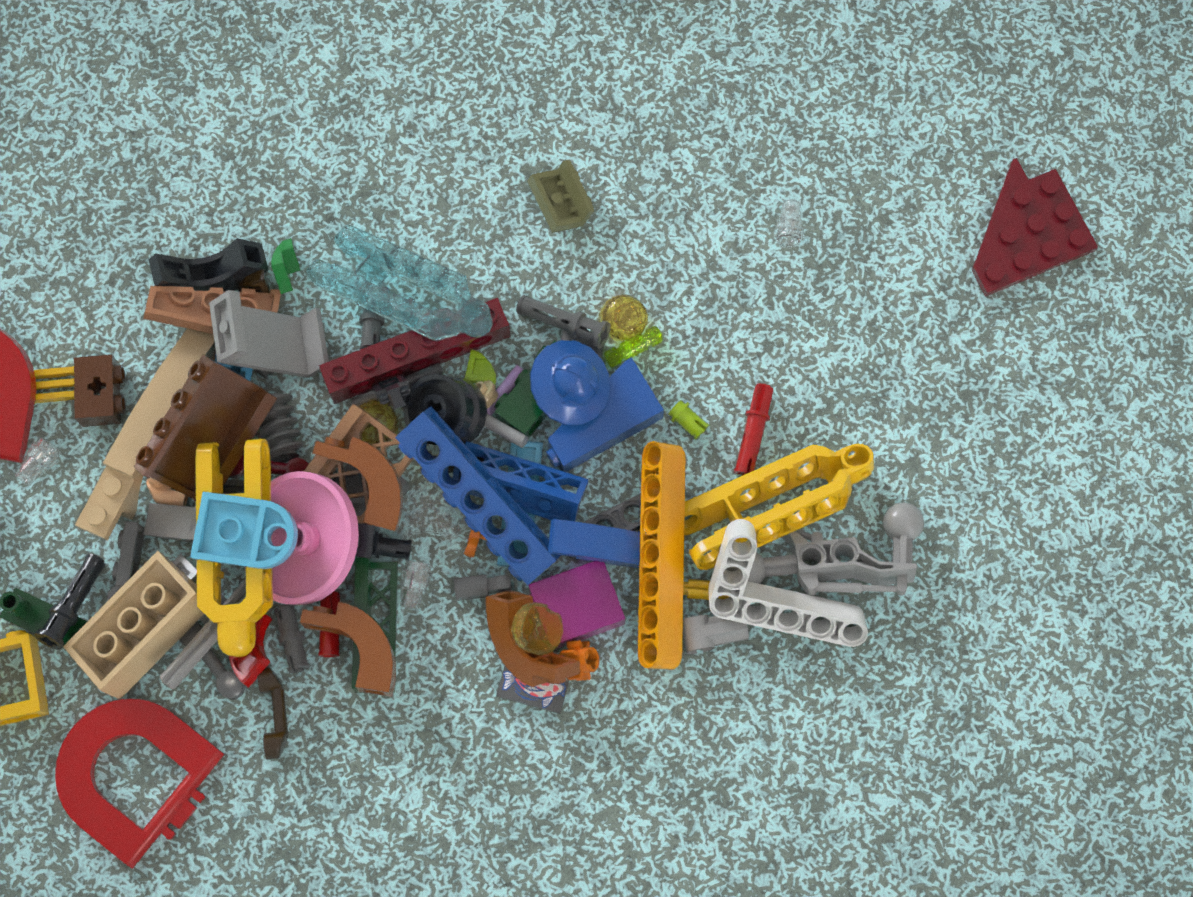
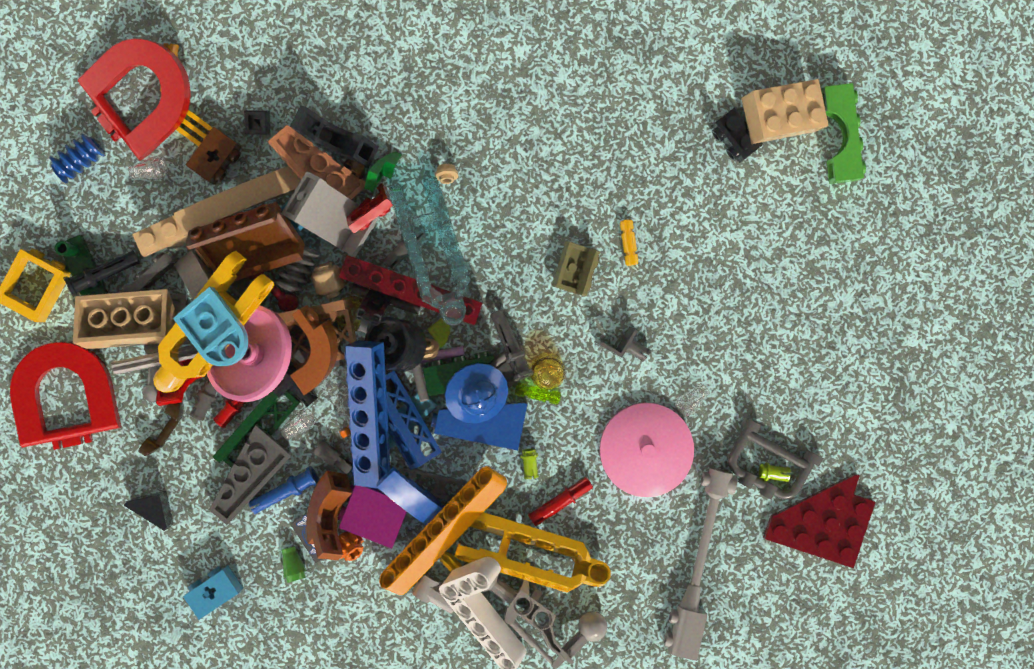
camera: 45 degrees right, 15 degrees up
(115, 324) = (257, 122): none -> black tile
(302, 311) = (369, 210): none -> red wing
(319, 412) = (327, 280): none -> tan head
(330, 805) = (153, 508): none -> black slope
(352, 214) = (446, 173): none -> tan plate
(377, 657) = (240, 442): dark orange arch -> none
(412, 696) = (251, 471): none -> dark grey wing
(465, 651) = (294, 485): none -> blue pin
(479, 859) = (204, 602): none -> dark azure brick
(537, 628) = (335, 517): clear yellow hair -> none
(537, 736) = (292, 565): none -> bright green cone
(590, 134) = (629, 242): none -> yellow axle
(677, 226) = (628, 344): none -> dark grey bracket
(791, 309) = (646, 449): none -> bright pink dish
(916, 250) = (749, 479): none -> dark grey bar
(927, 228) = (773, 472): none -> lime pin
(988, 431) = (688, 618): none -> light grey bar

